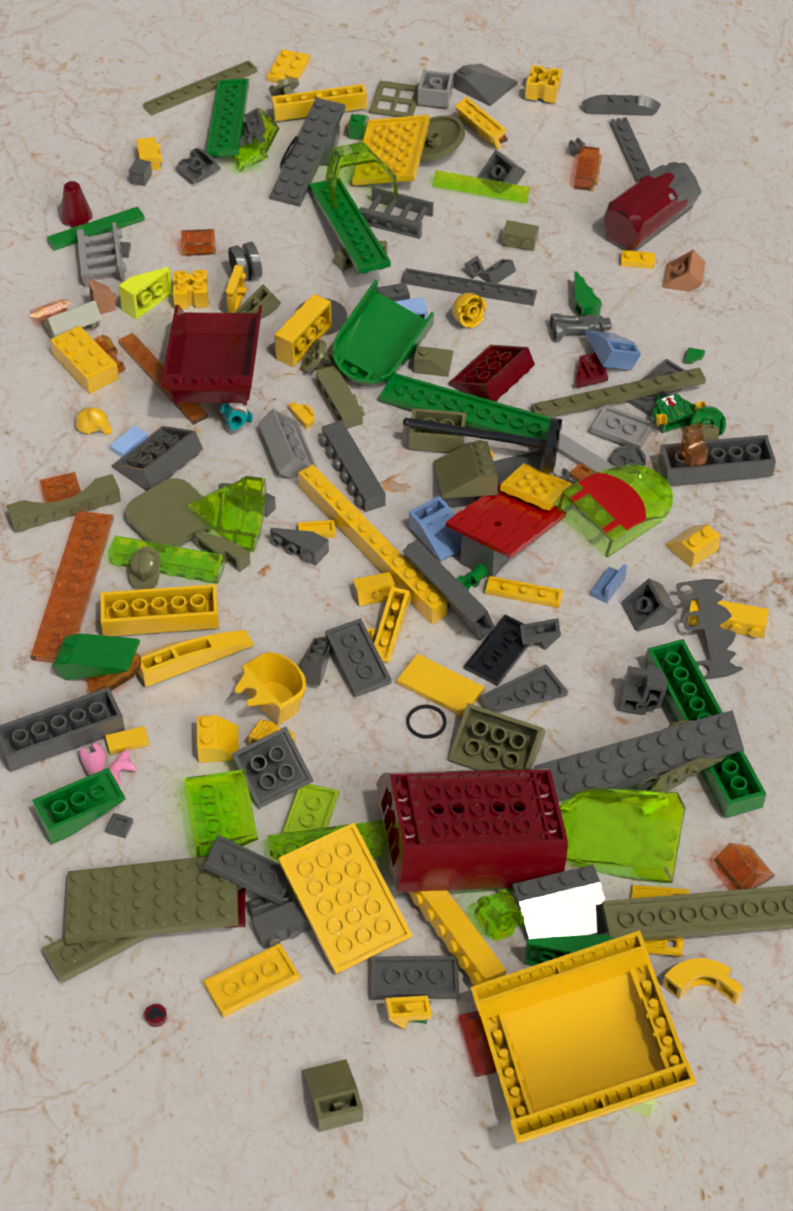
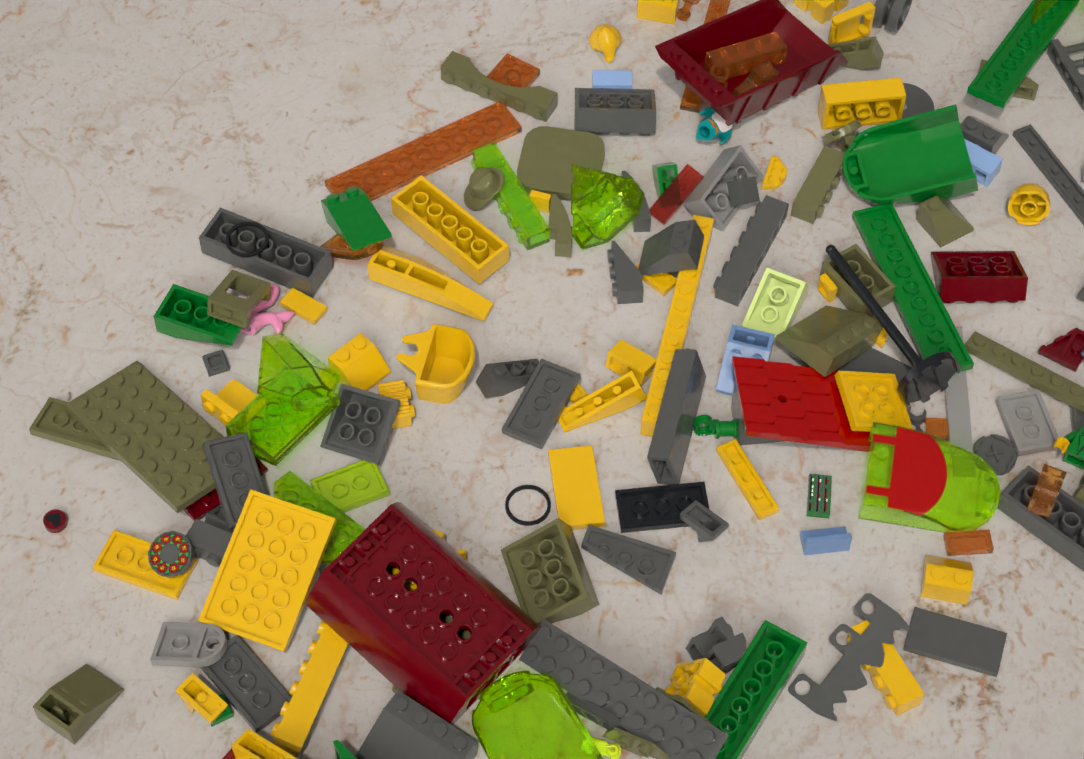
camera: 50 degrees right, 5 degrees up
(42, 744) = (242, 224): none -> black piece
(98, 774) = (234, 308): none -> olive window
(170, 836) = (228, 401): none -> yellow bracket
(190, 543) = (541, 200): none -> yellow tile
(191, 779) = (295, 375): none -> clear neon green windscreen
(207, 351) = (745, 56): none -> clear orange hinge
(236, 360) = (758, 76): none -> clear orange arch
(249, 465) = (664, 176): none -> green slope
(267, 952) = (171, 554): none -> tile
(269, 468) = (676, 194): none -> clear red tile
(305, 435) = (743, 190): none -> dark grey brick
(315, 501) = (672, 249): none -> dark grey slope
(351, 991) = (188, 645): none -> light grey tile
(408, 482) = (775, 302): none -> yellowish green slope
(423, 449) = (827, 288): none -> yellow tile
(498, 915) = (358, 702): clear neon green brick -> none
(573, 564) = (819, 496): none -> tile
(649, 605) = (831, 590): dark grey slope -> none
(658, 714) = (696, 683): none -> yellow brick
(677, 517) = (968, 542): none -> clear orange tile
(742, 571) = (955, 642): none -> dark grey tile

